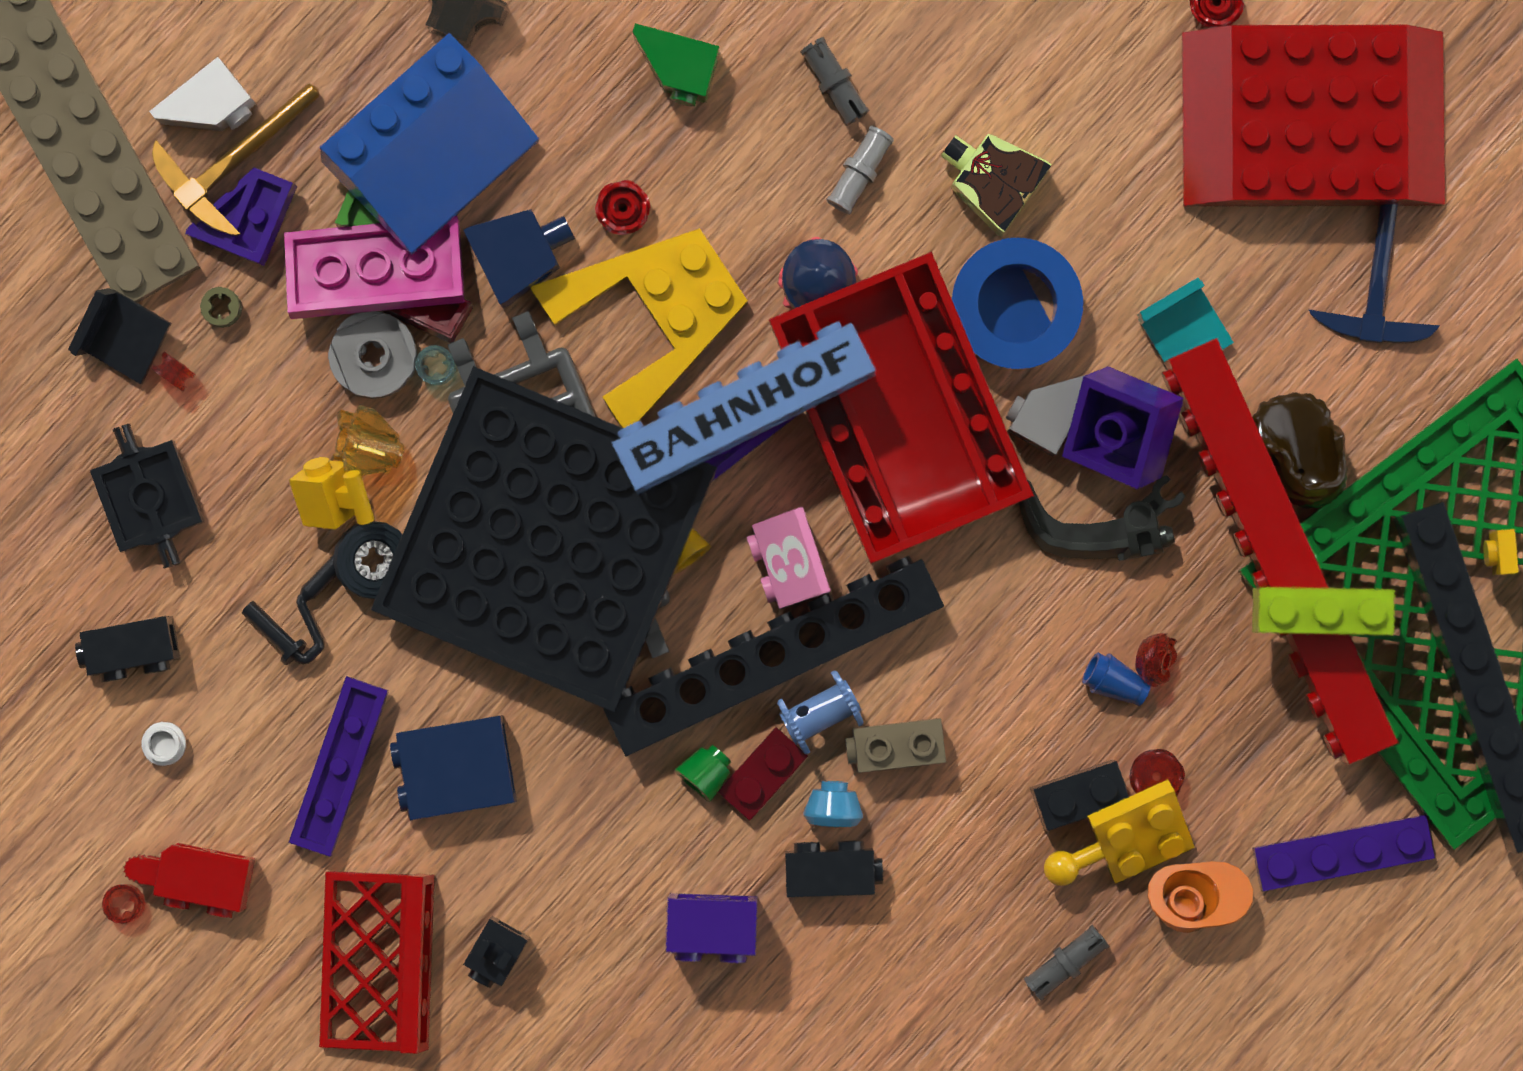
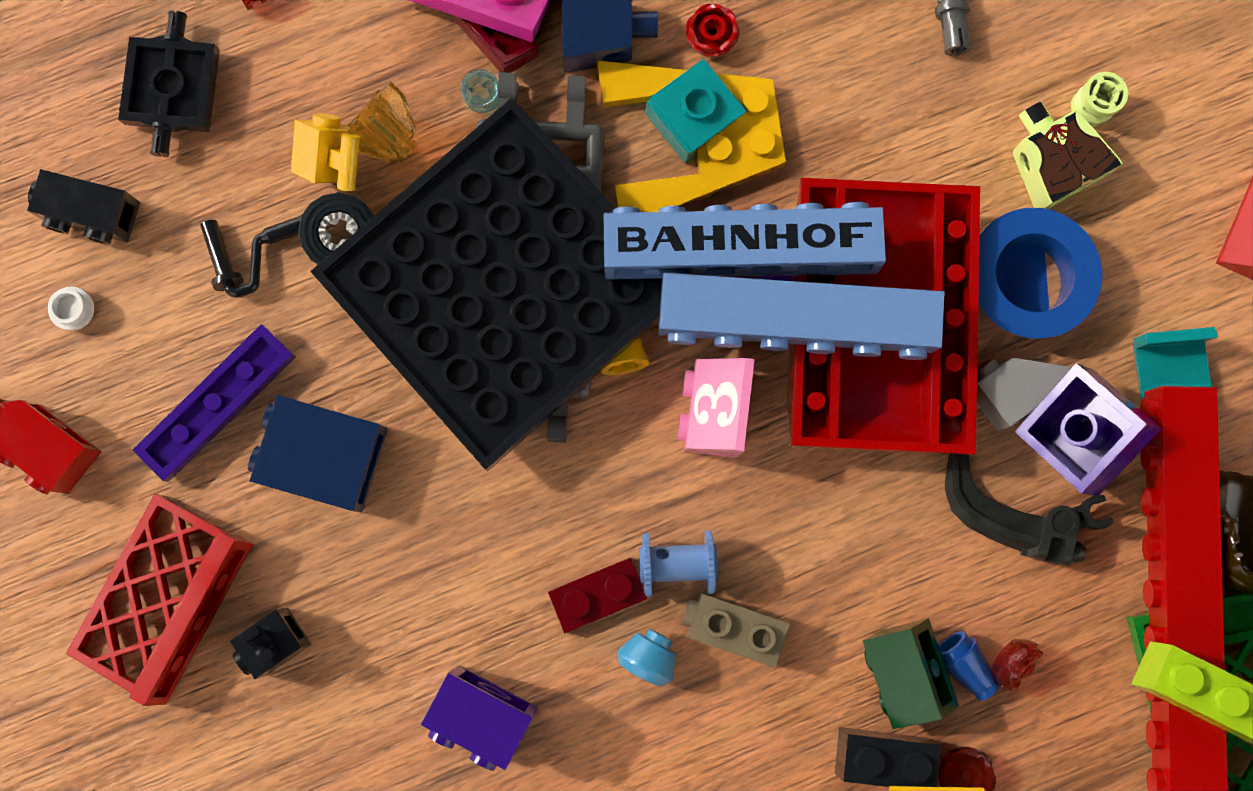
camera: 25 degrees right, 5 degrees down
(383, 331) = (414, 37): light grey plate -> none
(641, 292) = (693, 109): none -> teal piece
(705, 771) = (545, 567): green hat -> none
(815, 271) = (860, 156): dark blue hair -> none
(822, 448) = (801, 314): none -> medium blue brick
(832, 872) = (619, 720): black brick -> none
(860, 170) = (940, 94): light grey pin -> none
(919, 600) = (819, 500): black brick -> none
(1001, 112) = (1096, 107): none -> yellowish green wheel
(1066, 711) = (910, 674): none -> dark green brick

